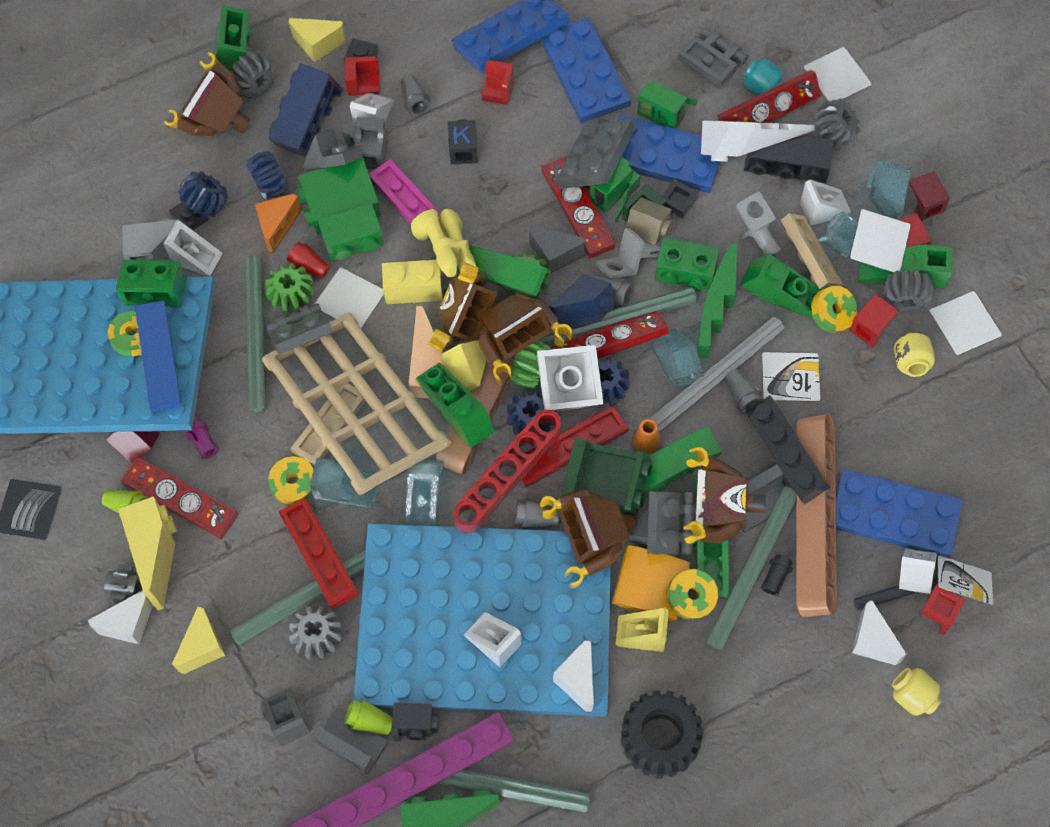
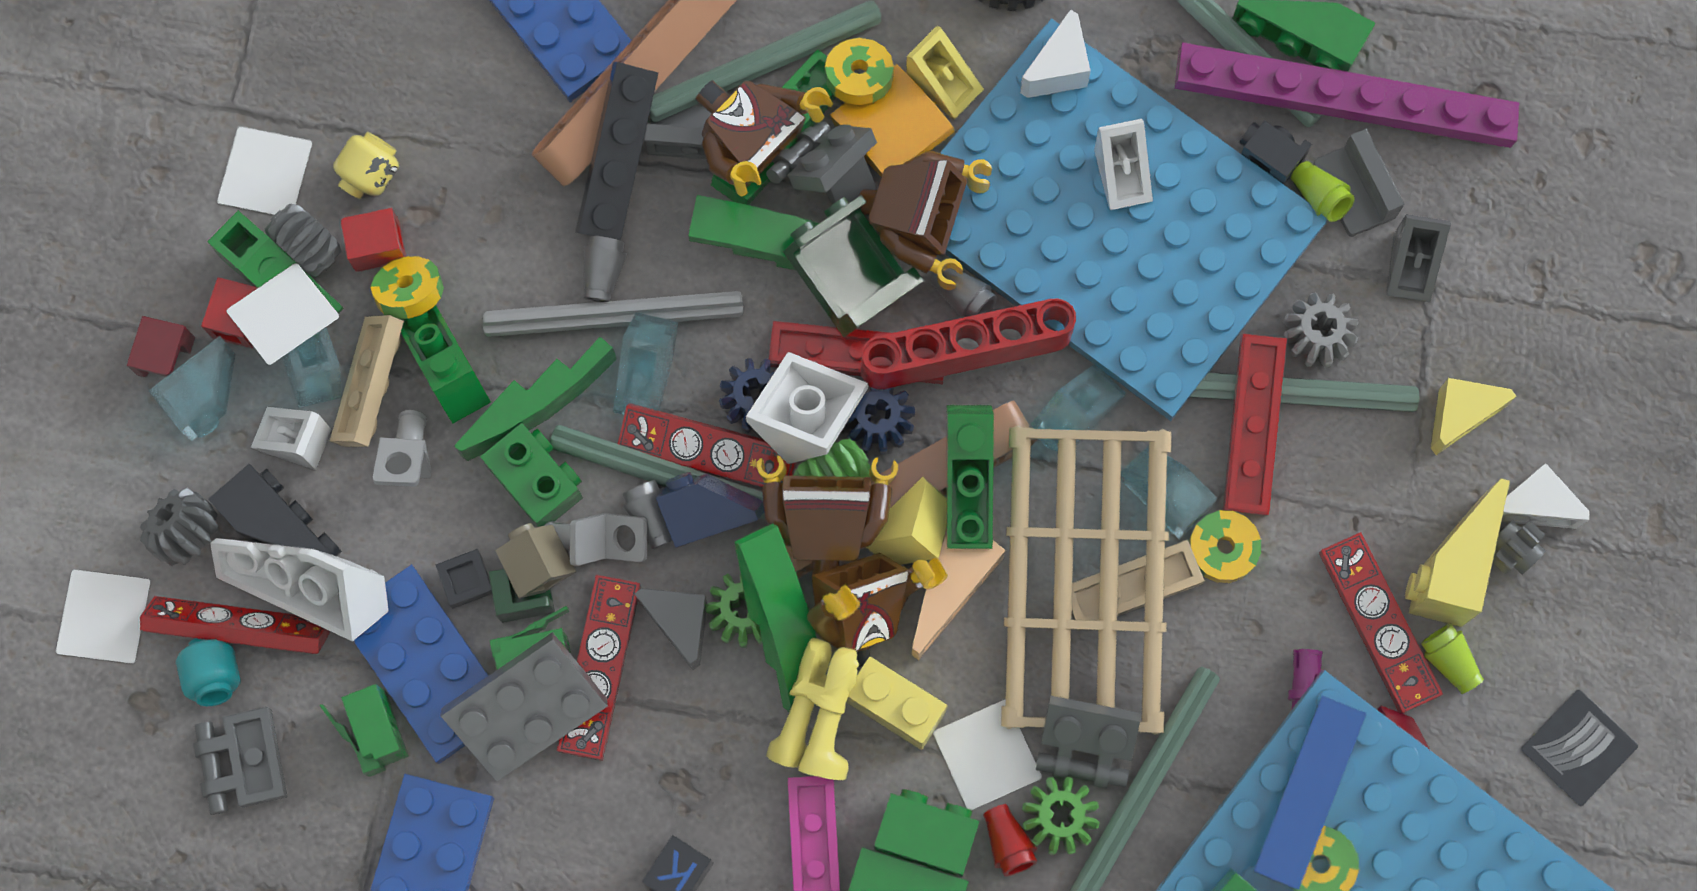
camera: 145 degrees left, 10 degrees up
(647, 437) = (765, 298): orange cone -> none
(776, 575) = (745, 34): black pin -> none
(791, 376) = (526, 254): sticker -> none

